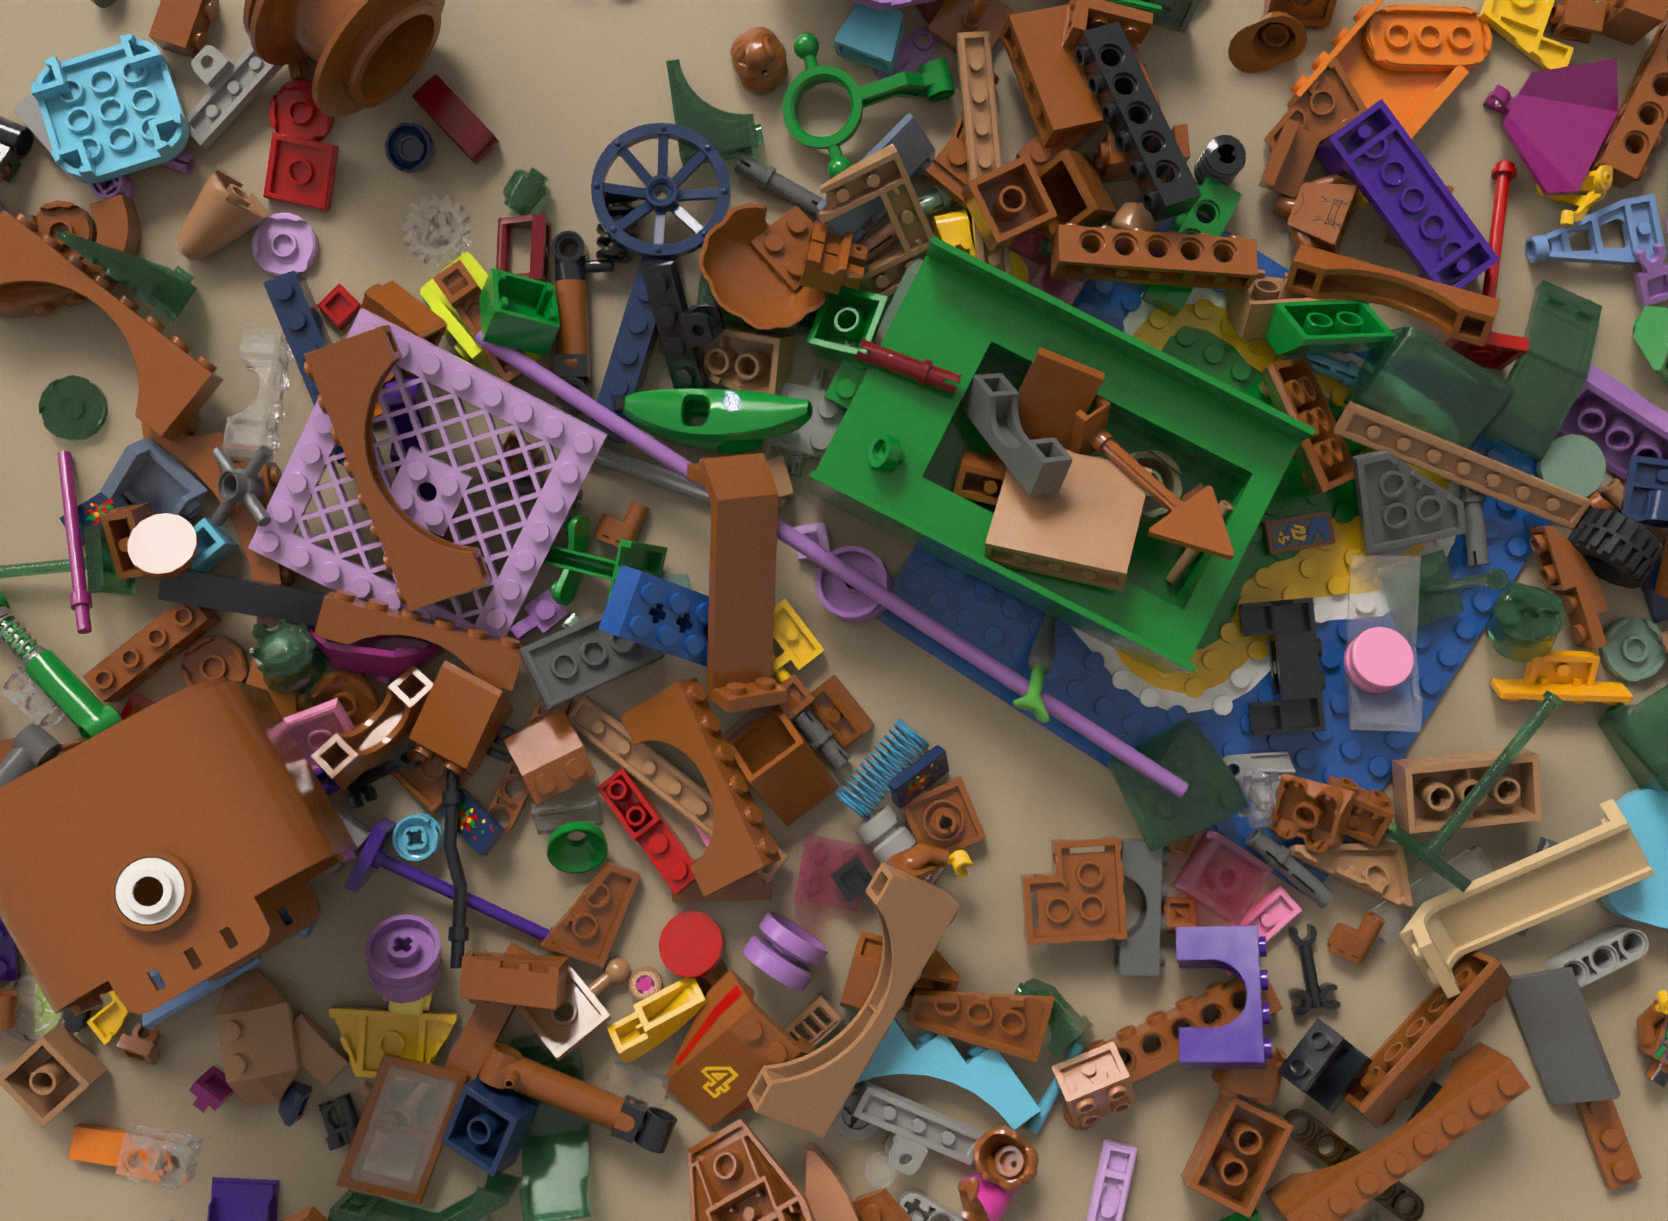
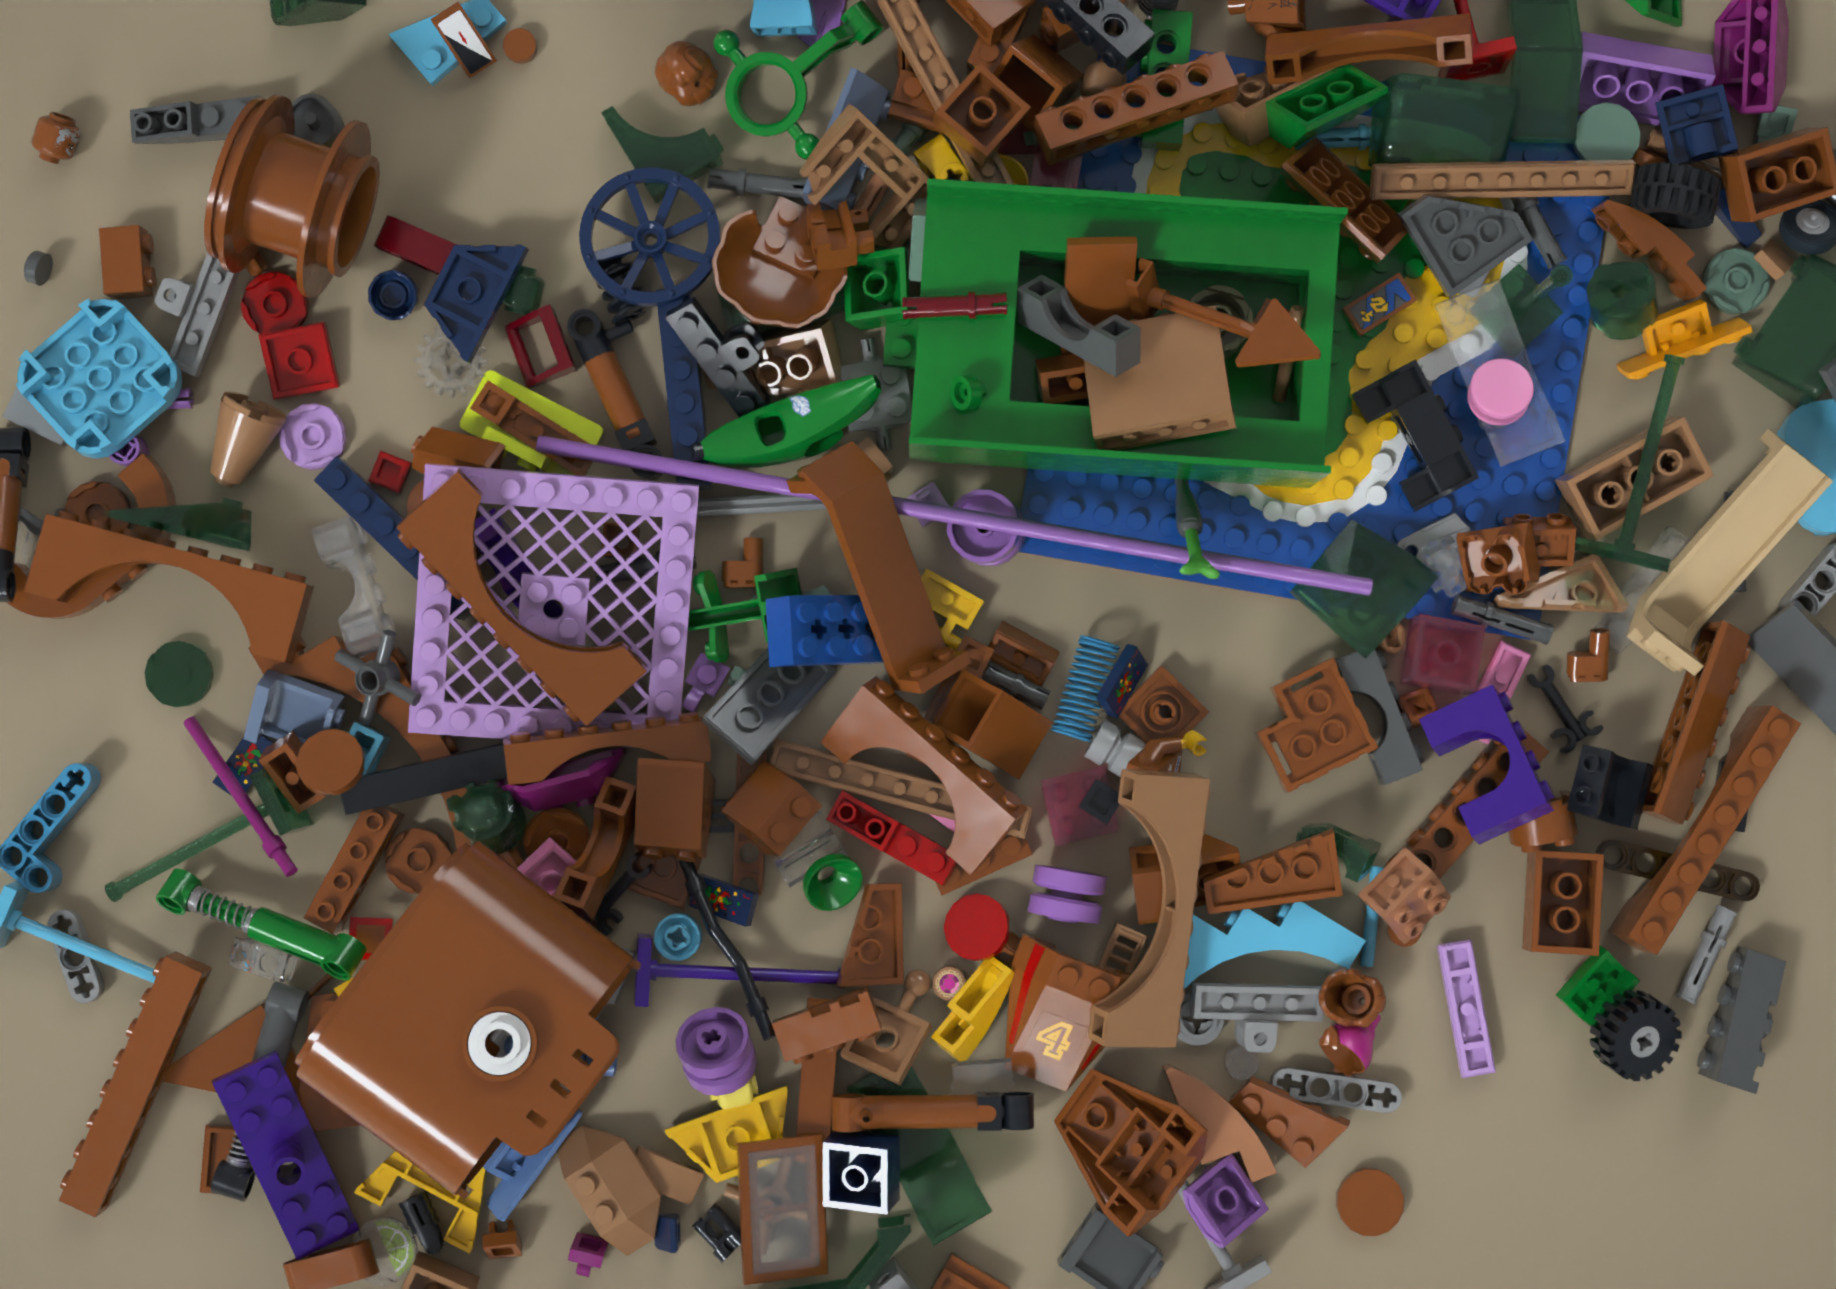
camera: 20 degrees left, 0 degrees up
(478, 173) = (472, 292): none -> dark blue wing
(519, 312) = (566, 406): green container -> none

